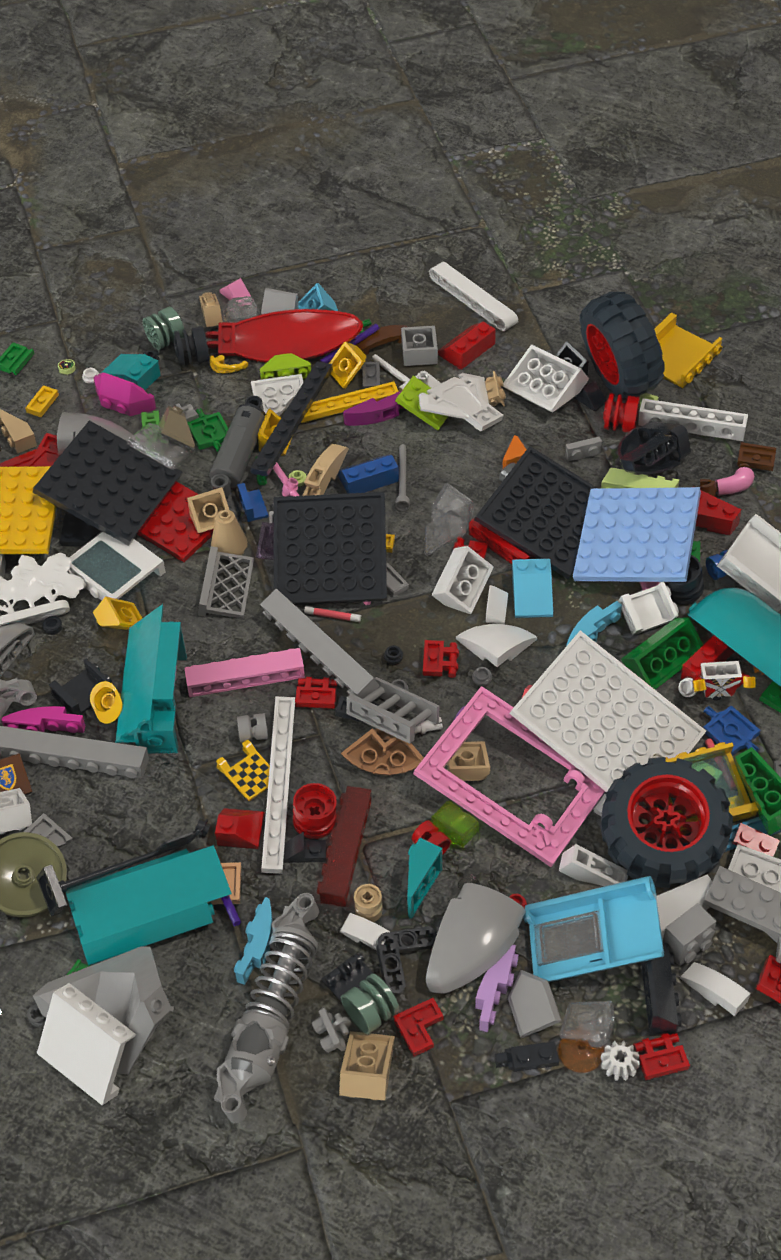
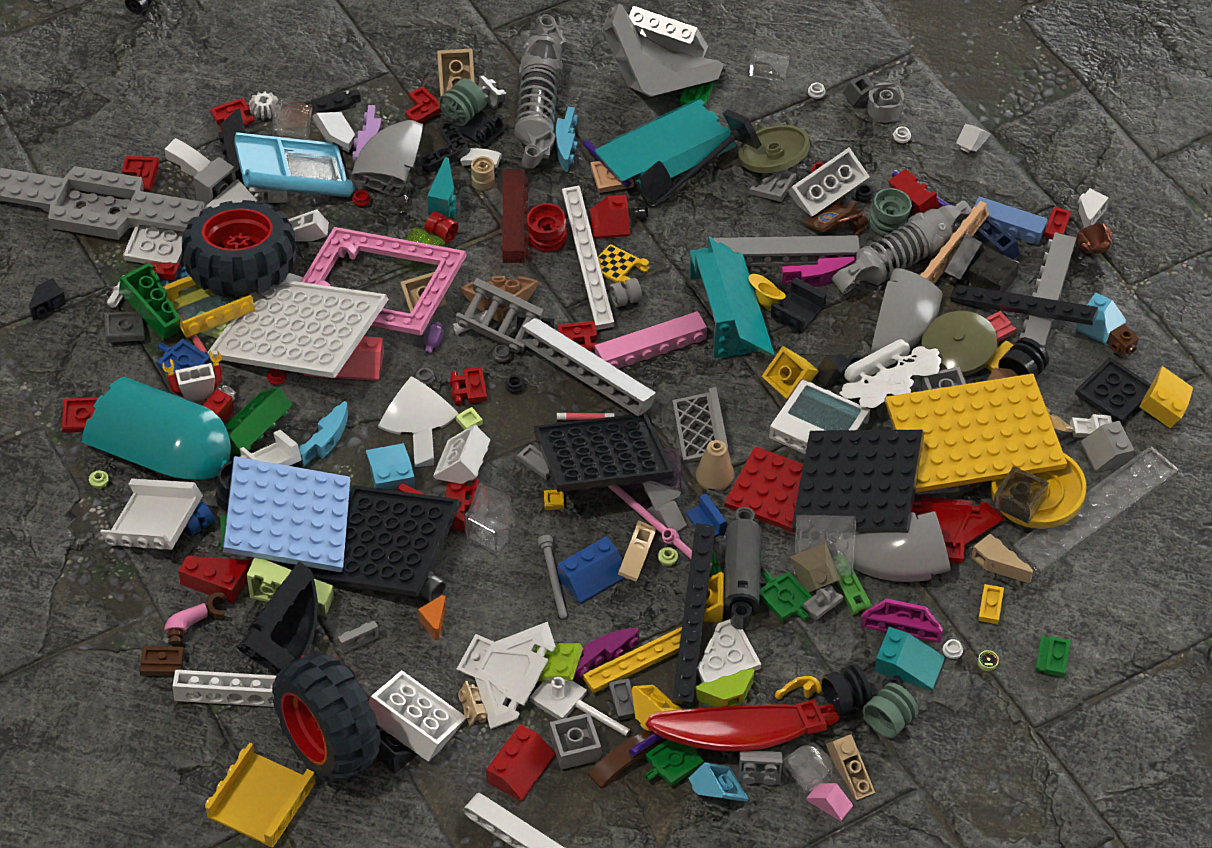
camera: 165 degrees right, 0 degrees up
(76, 615) = (831, 369): none -> black slope
(205, 507) = (743, 484): tan slope -> none
(447, 624) = (469, 418): none -> yellowish green plate

